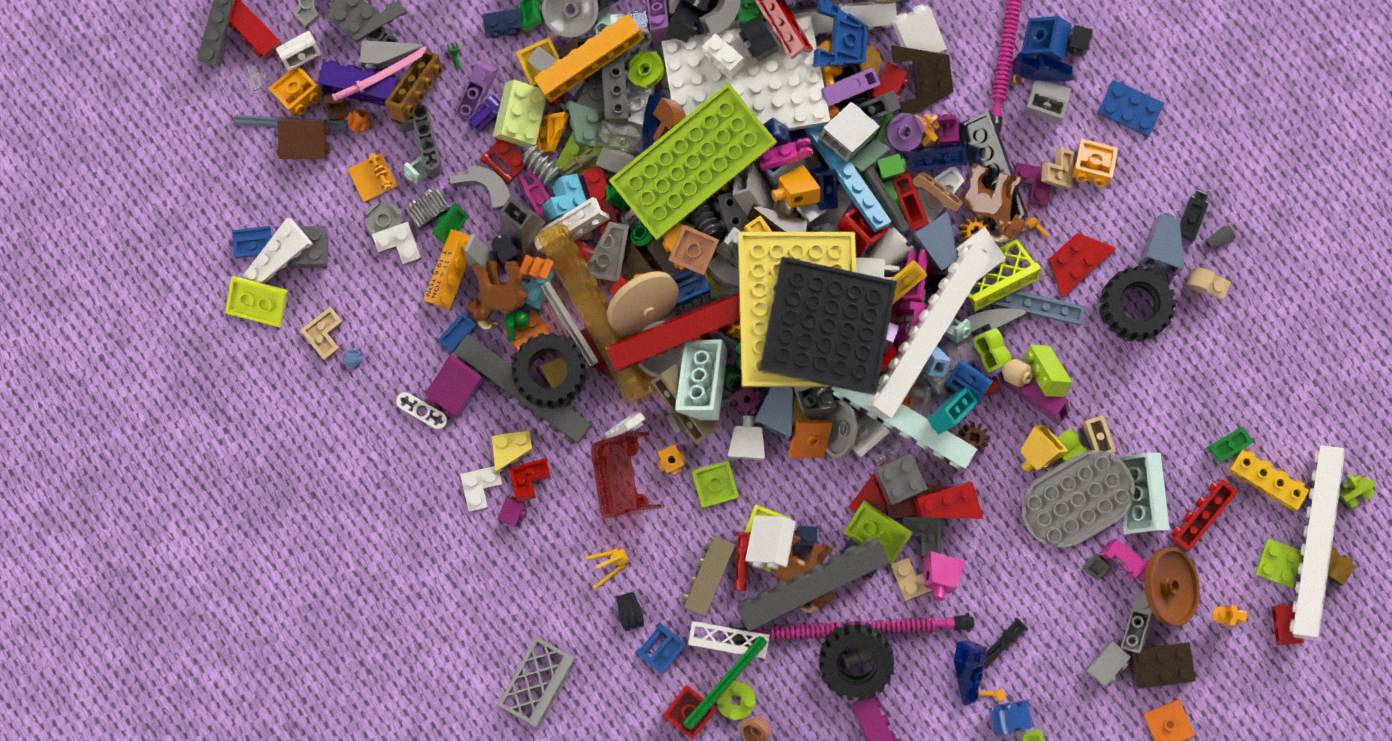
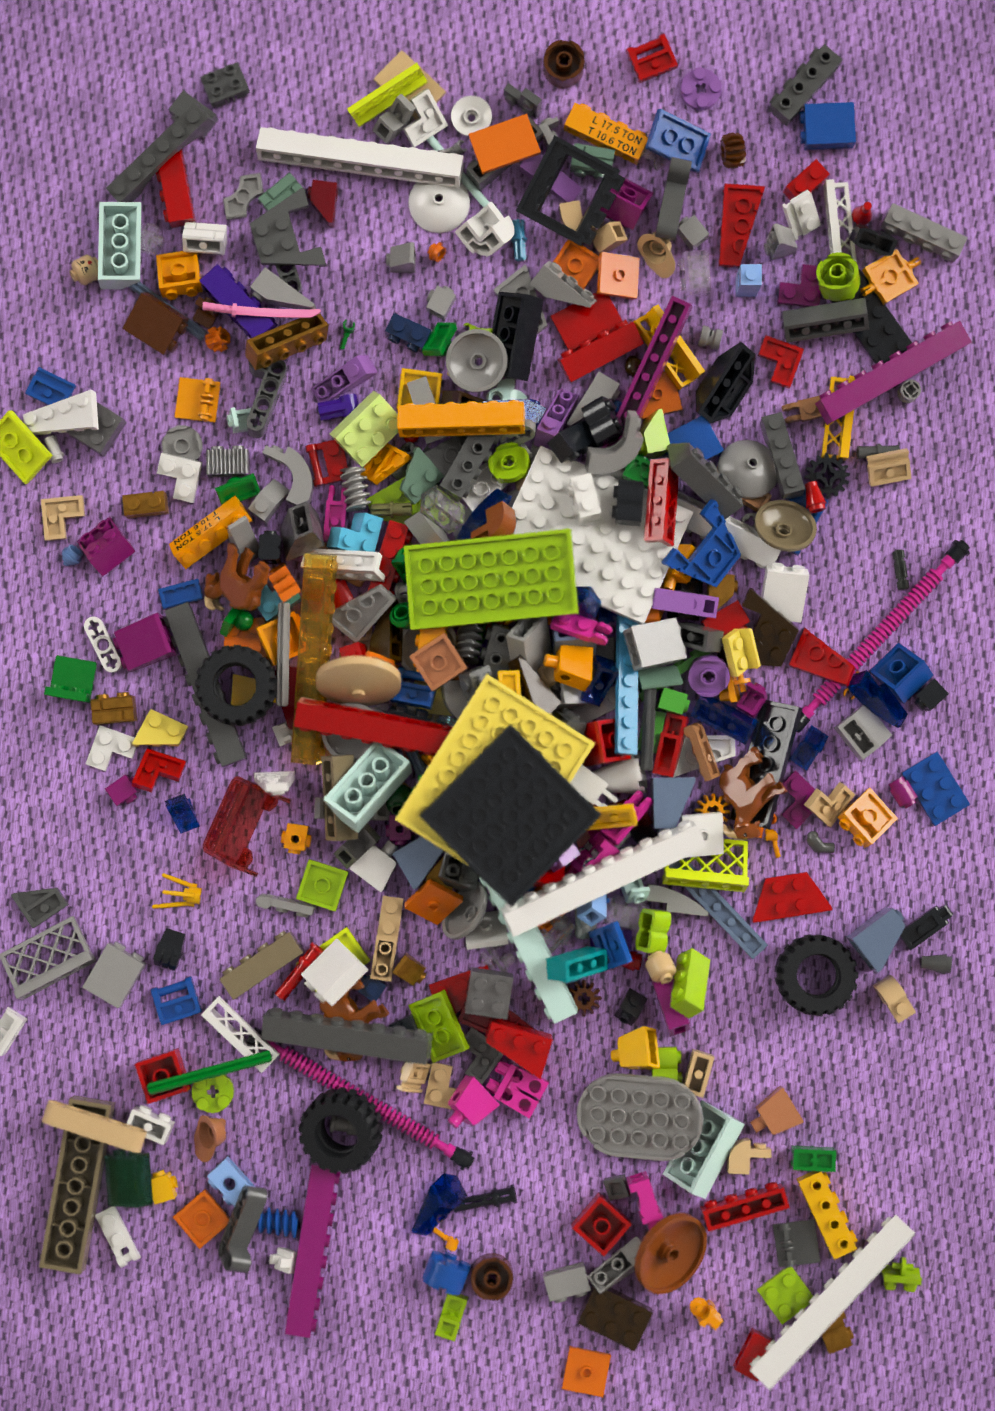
camera: 35 degrees right, 5 degrees up
(220, 133) = (84, 269): none -> tan head
(236, 96) = (119, 244): none -> light aqua slope
(280, 282) = (53, 447): none -> white pin
(374, 333) = (105, 546): none -> magenta slope
(385, 281) = (145, 504): none -> pearl gold brick
(415, 453) = (72, 679): none -> green bracket
(463, 454) = (113, 709): none -> pearl gold brick
(479, 218) = (268, 500): none -> light grey slope
(504, 643) = (40, 904): none -> dark grey wing
(549, 319) = (268, 637): none -> light orange plate
(570, 499) = (182, 813): none -> clear blue slope
(599, 658) = (115, 974): none -> light grey brick
(608, 387) = (283, 733): none -> white tile
(695, 518) = (284, 904): none -> light grey hinge
(722, 437) = (355, 848): none -> flat silver brick
(792, 491) = (387, 938): none -> tan slope
(826, 503) = (410, 970): none -> pearl gold slope
(884, 582) = (413, 1076): none -> tan plate
(916, 97) = (740, 651): none -> light yellow bracket
(963, 540) = (510, 1088): none -> dark pink hips
(980, 67) = (820, 660): none -> red wing
(1014, 422) = (630, 1007): none -> black bracket
(1015, 139) = (809, 747): none -> clear blue slope
(1056, 691) = (490, 1288): none -> reddish brown brick
(1071, 207) = (817, 844): none -> dark grey arm
(1104, 601) = (601, 1224): none -> red brick
(1108, 126) = (903, 792): none -> magenta brick
(1173, 479) = (739, 1158): none -> tan brick
(1178, 428) = (776, 1113): none -> nougat torso
(1260, 518) = (796, 1243): none -> dark grey hinge

